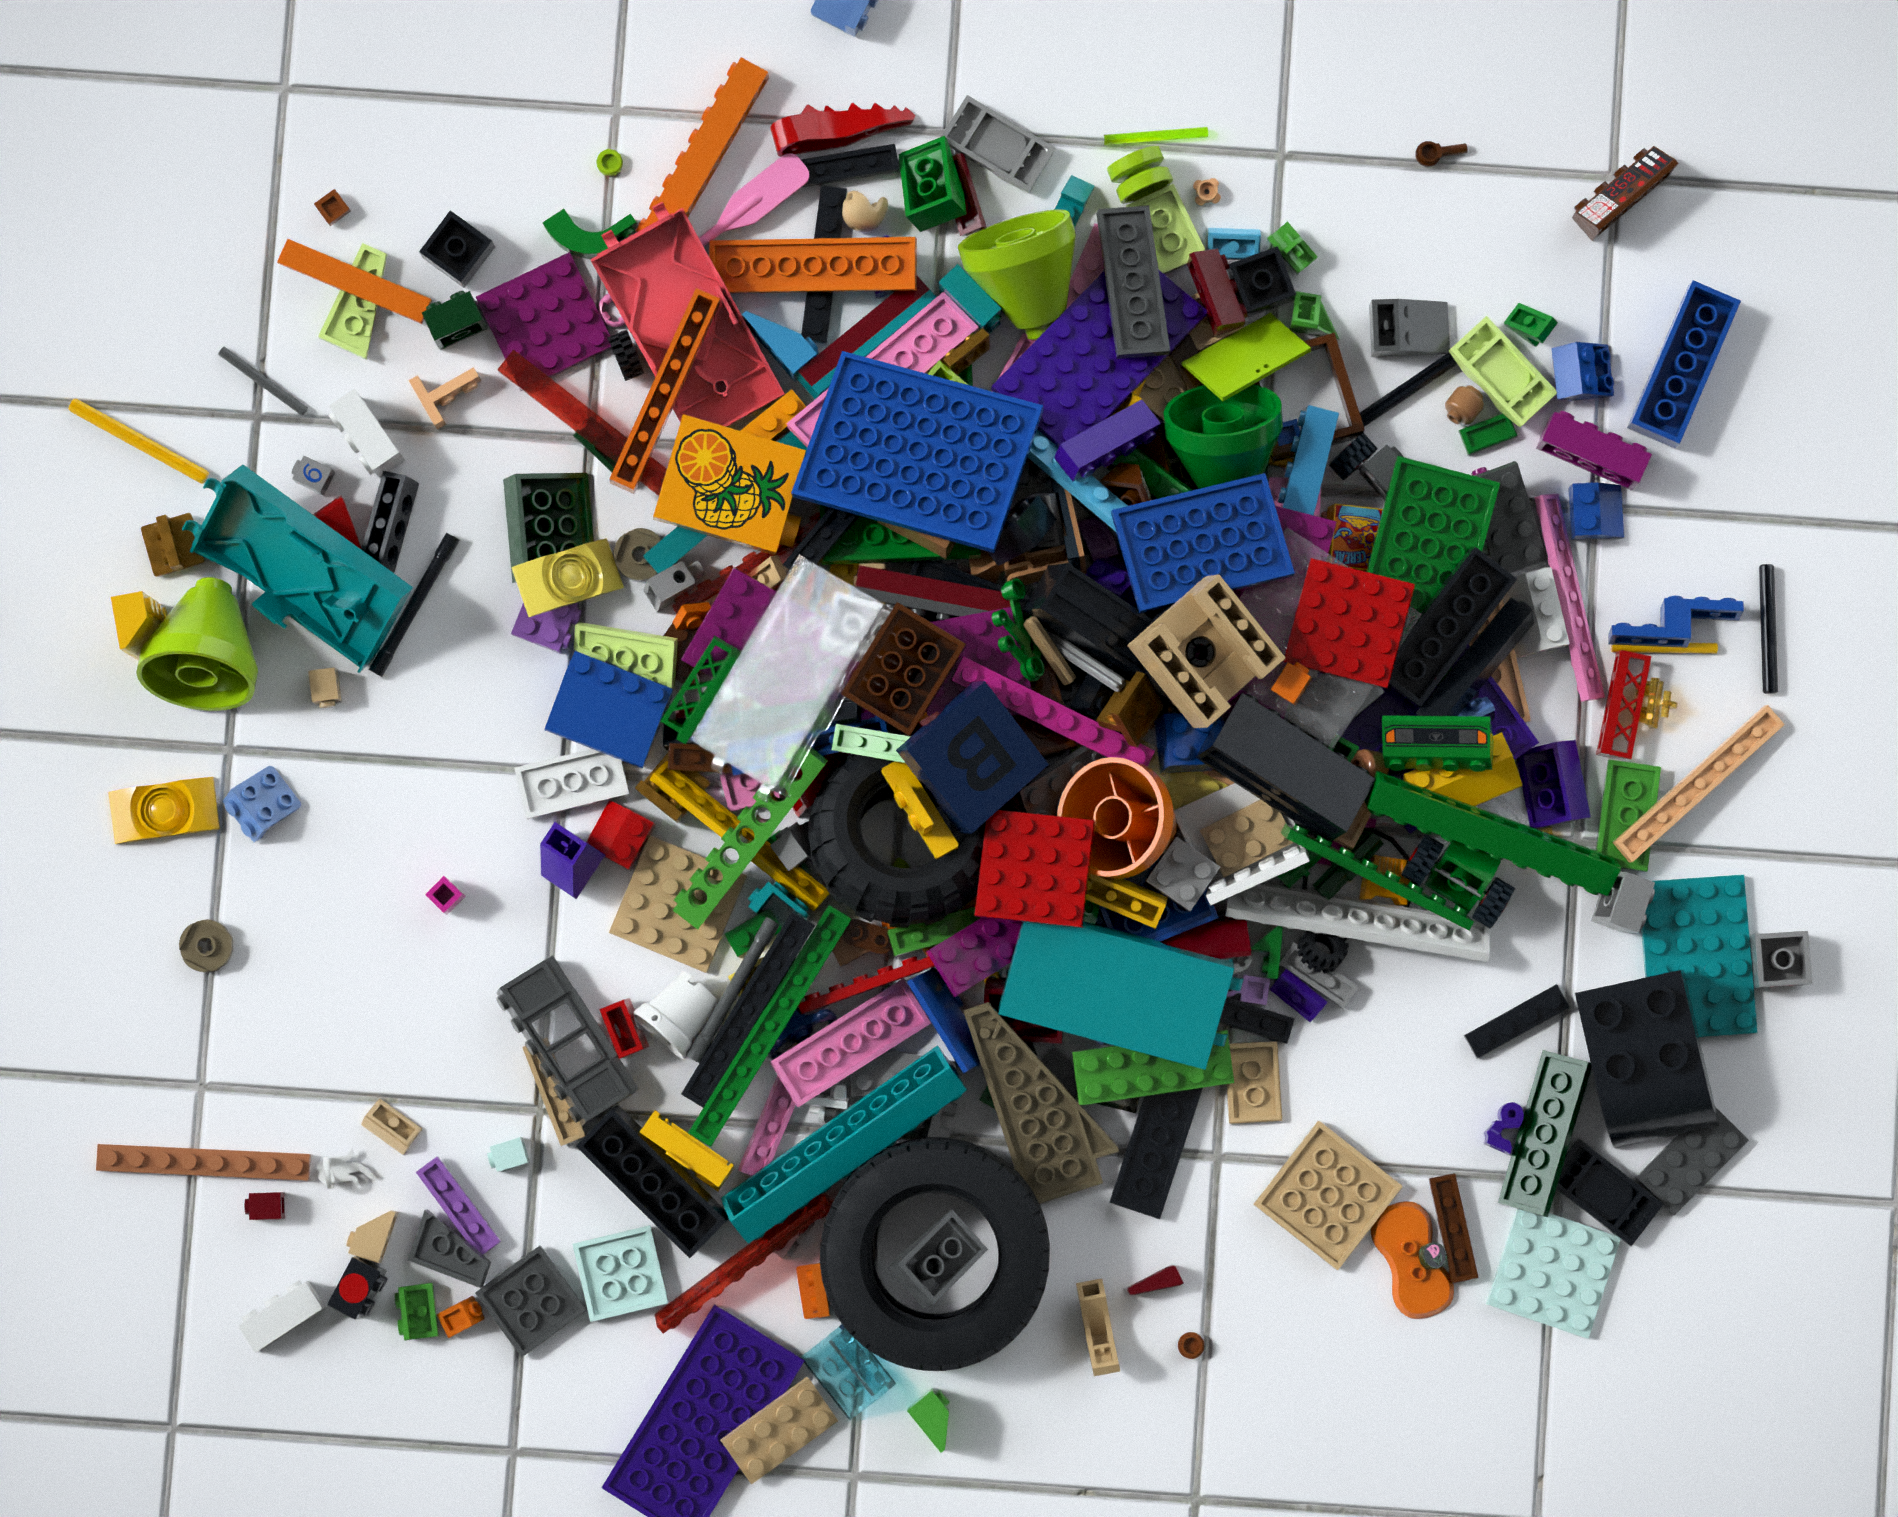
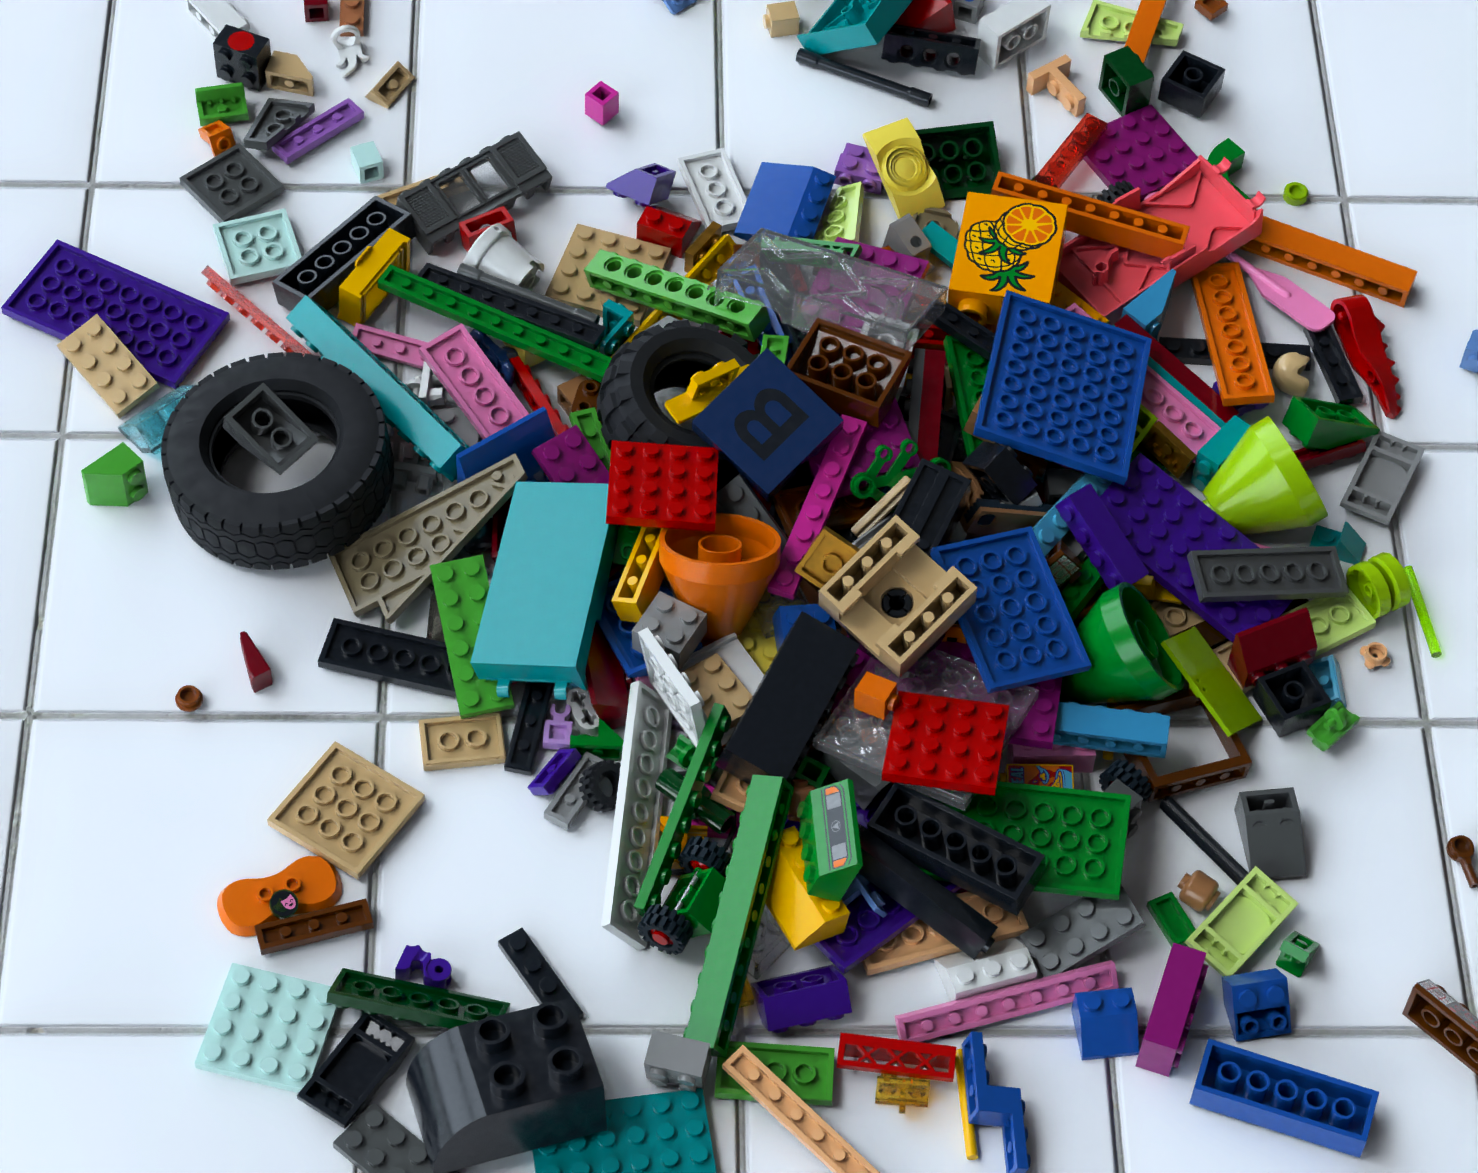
camera: 80 degrees right, 30 degrees down
(1097, 1327) = (207, 616): tan arch -> none
(1310, 316) = (1265, 748): bright green slope -> none

